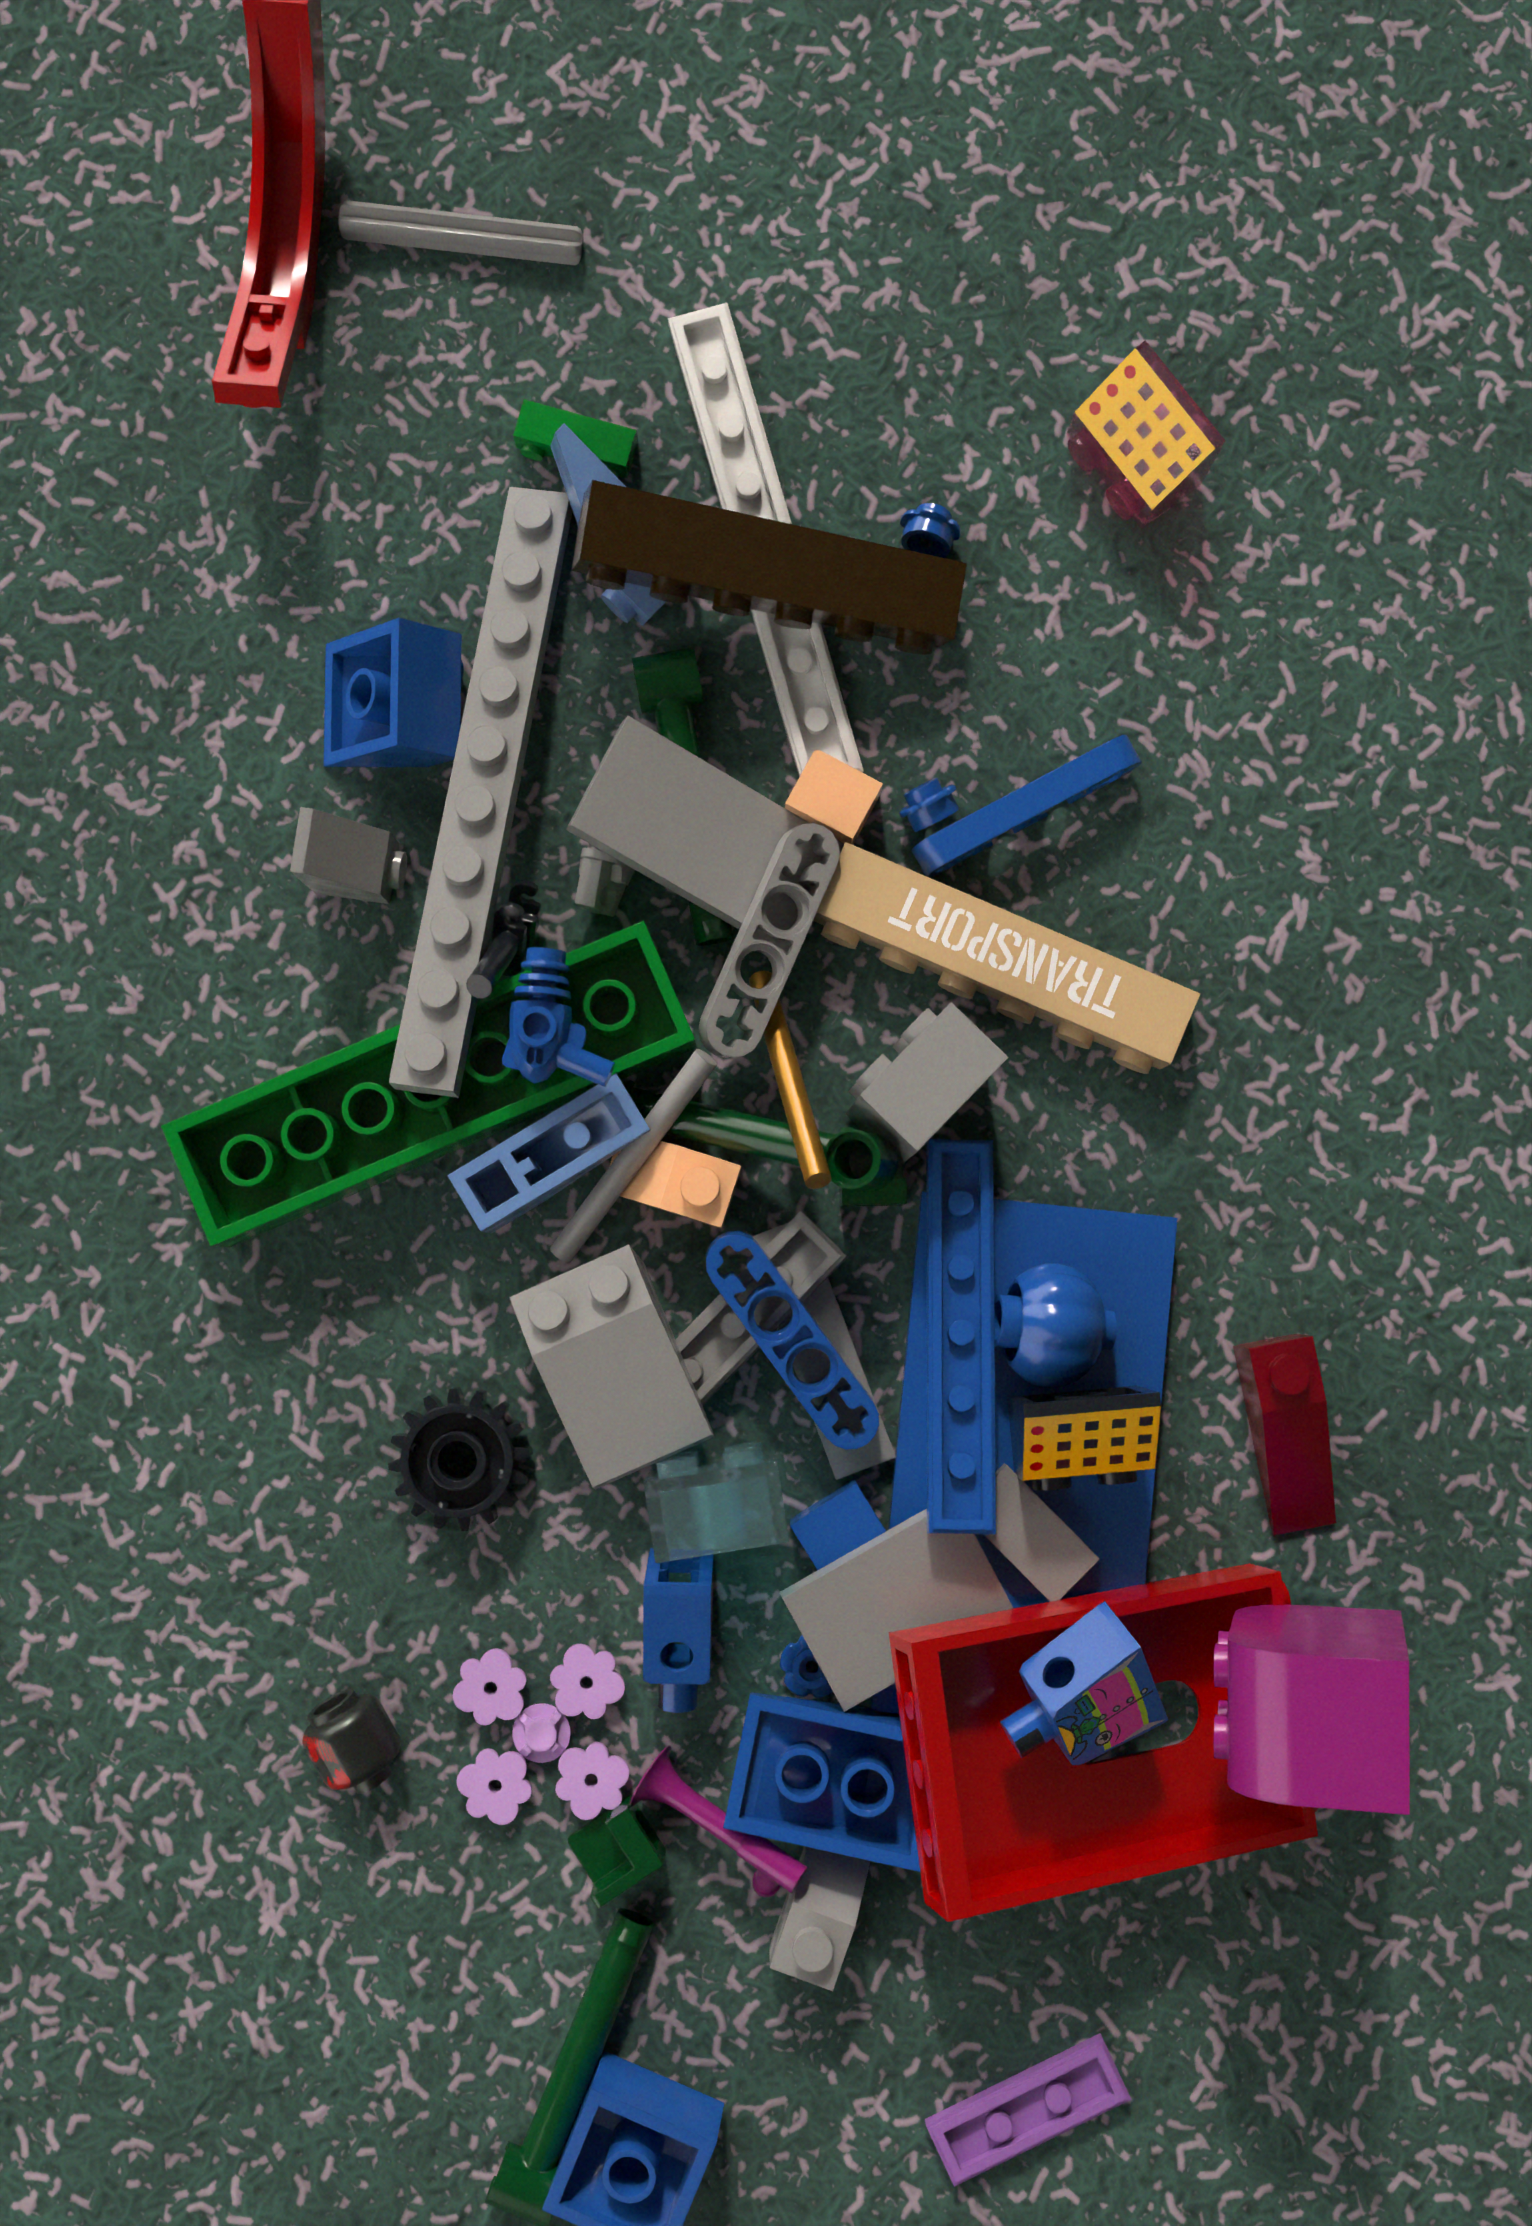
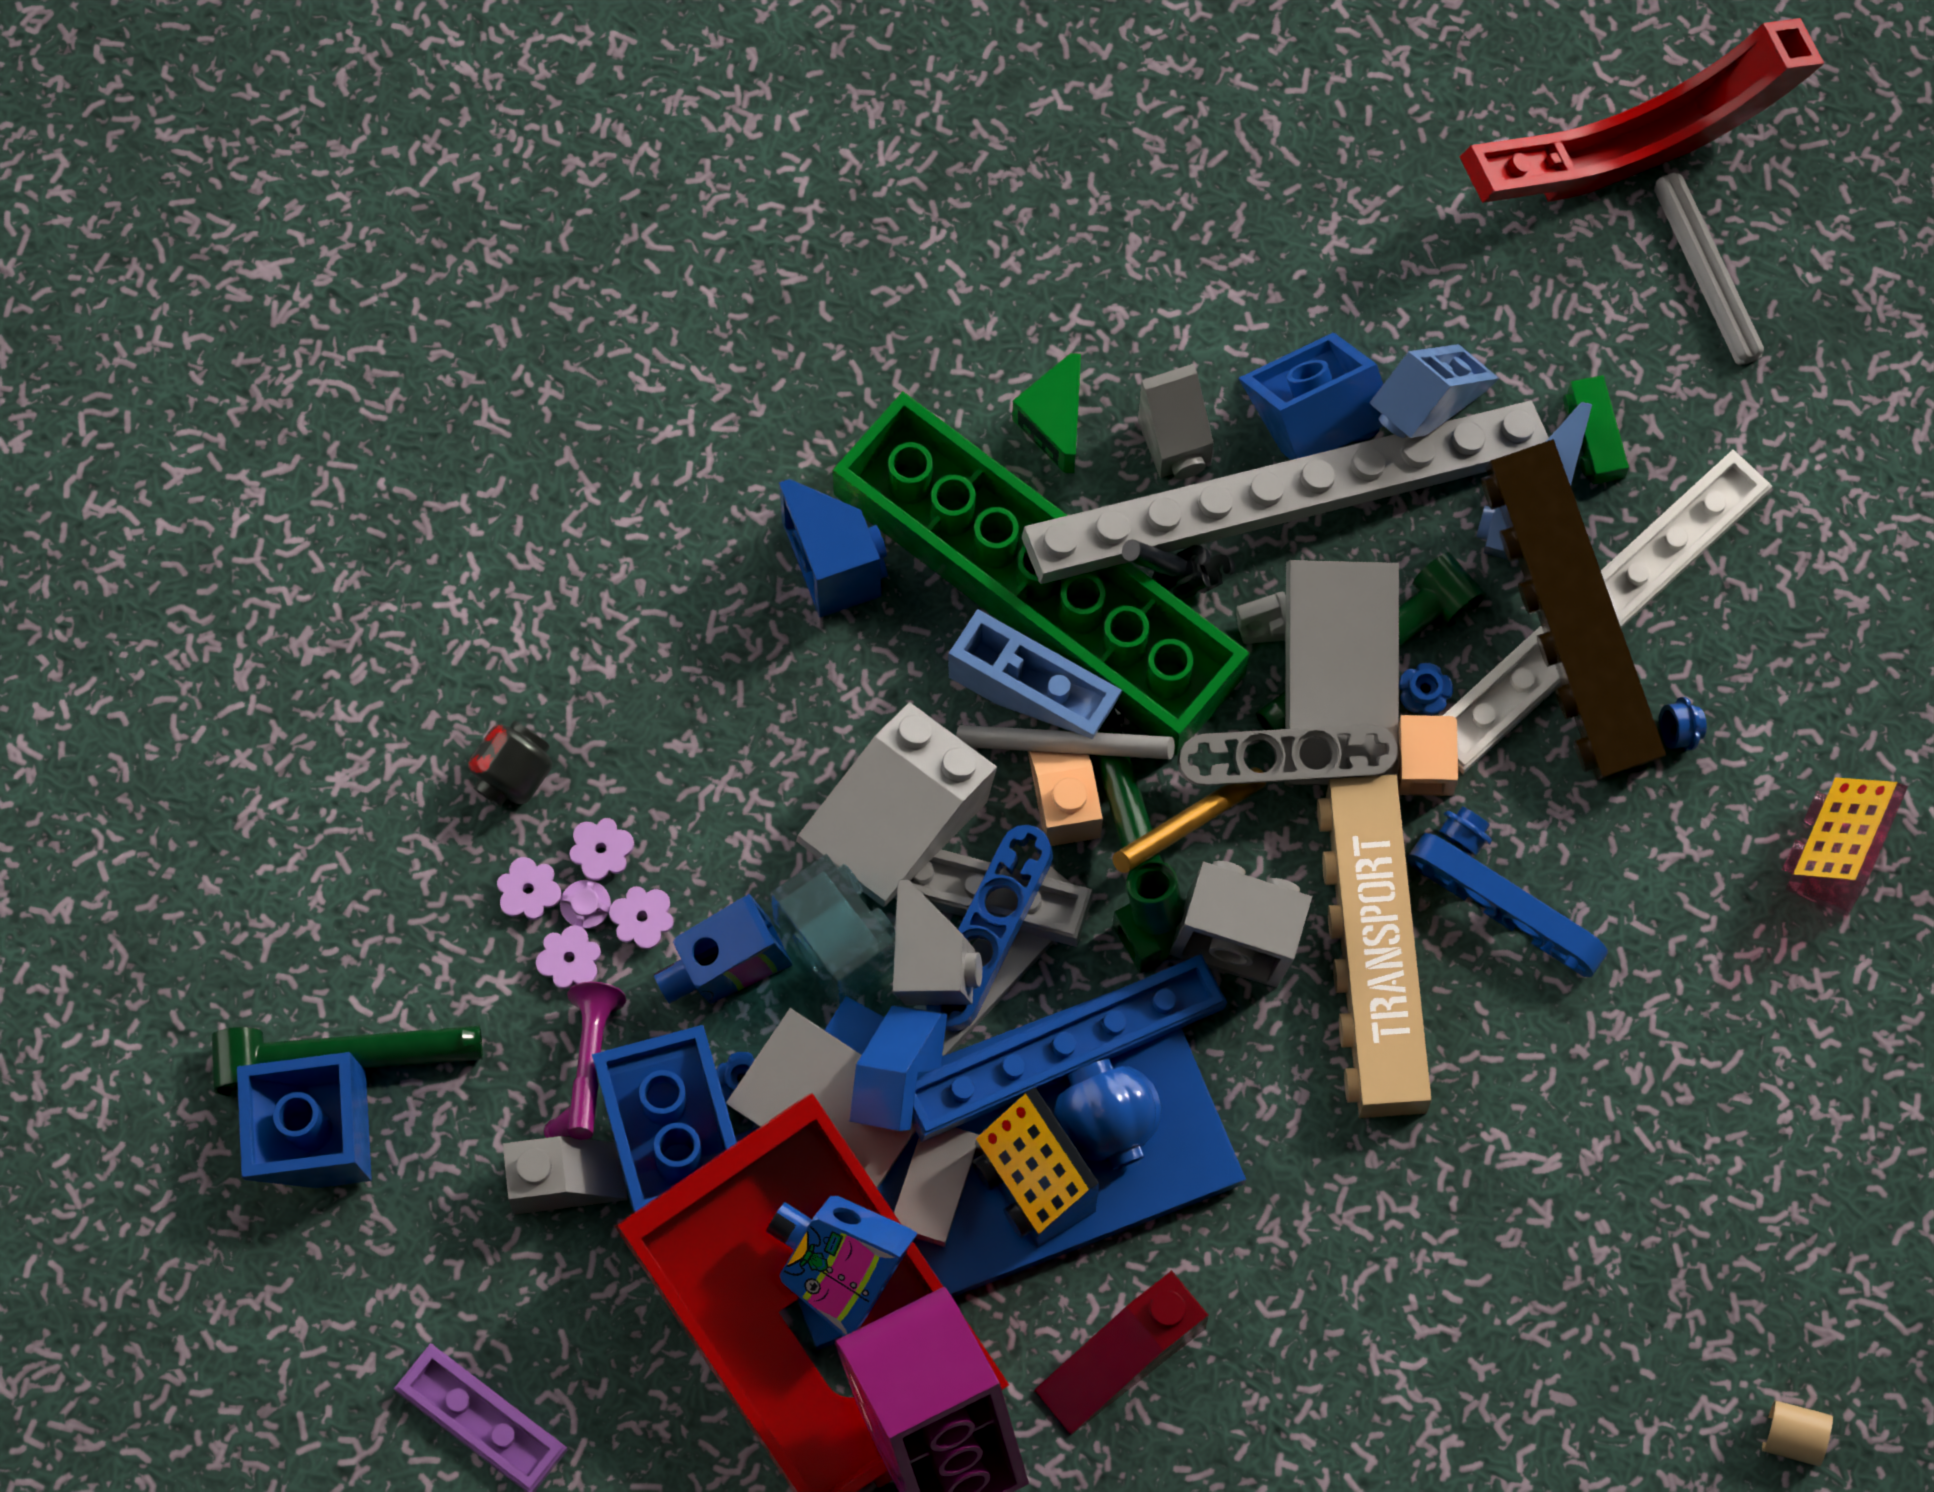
camera: 65 degrees right, 15 degrees down
(261, 978) = (1050, 412): none -> green slope
(296, 1289) = (833, 548): none -> blue slope
(425, 1466) = (760, 708): black gear -> none
(454, 580) = (1430, 389): none -> medium blue slope
(542, 1029) = (1128, 613): blue piece -> none
(617, 1850) = (527, 1002): dark green panel -> none
(760, 745) = (1420, 702): none -> blue plate
(797, 1420) = (931, 955): none -> light grey slope
(894, 1513) = (888, 1068): none -> blue slope

